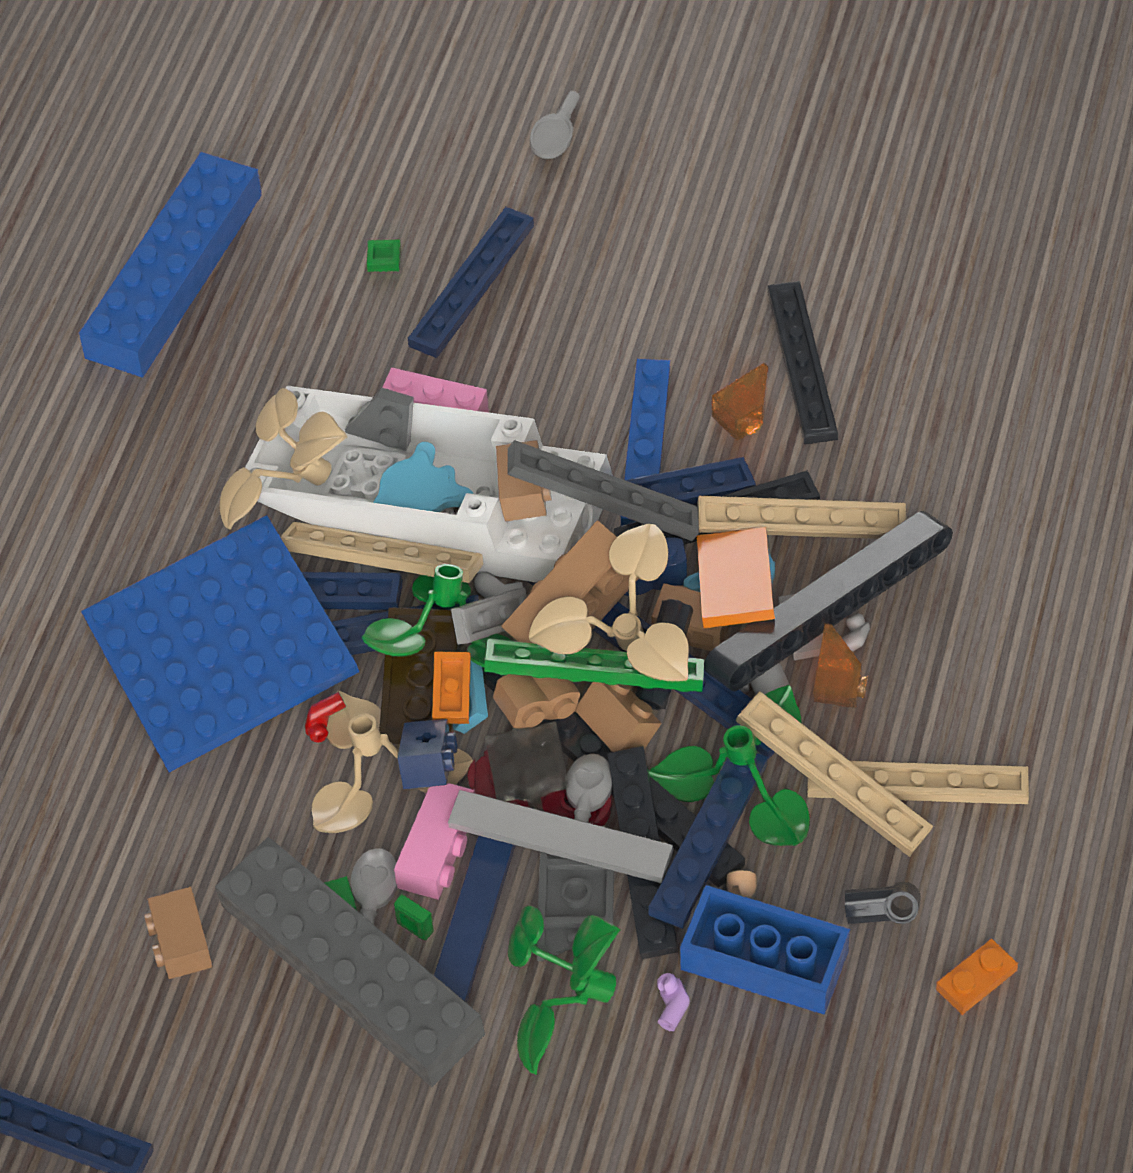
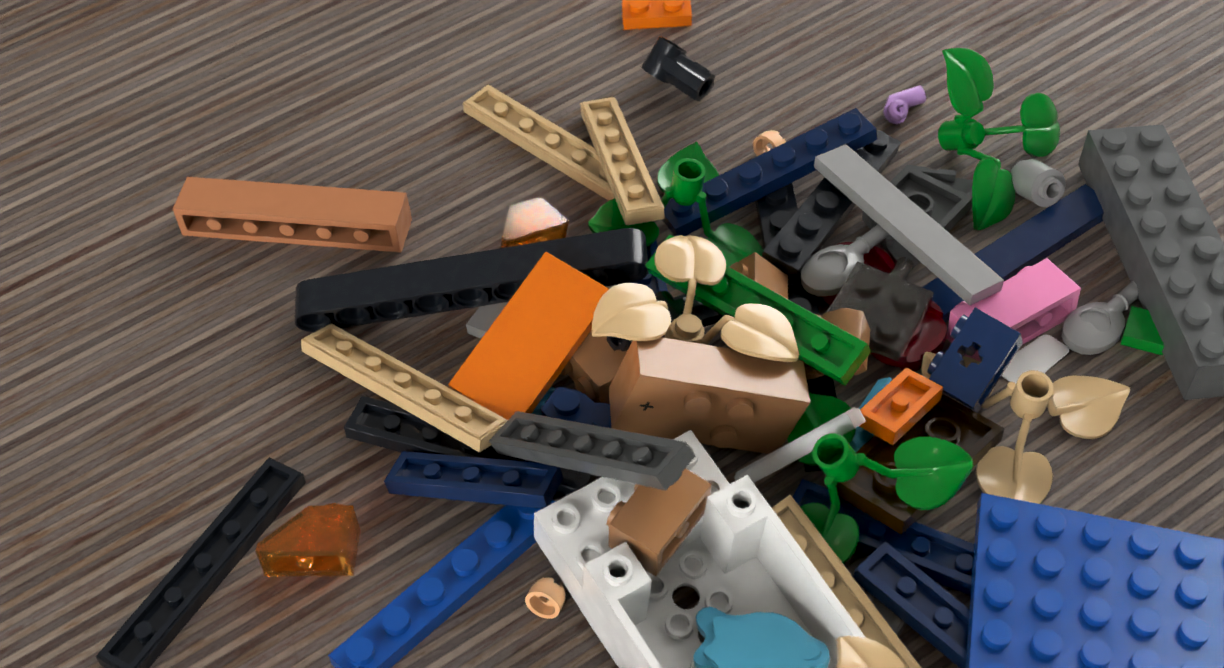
camera: 140 degrees left, 5 degrees down
(319, 715) = (1054, 492): red arm -> none
(399, 824) = (1037, 356): none -> white sticker
(413, 917) = (1083, 262): green tile -> none
(497, 970) = (1038, 182): none -> light grey brick
(764, 949) = (800, 74): blue brick -> none
(1031, 587) = (293, 214): none -> nougat brick

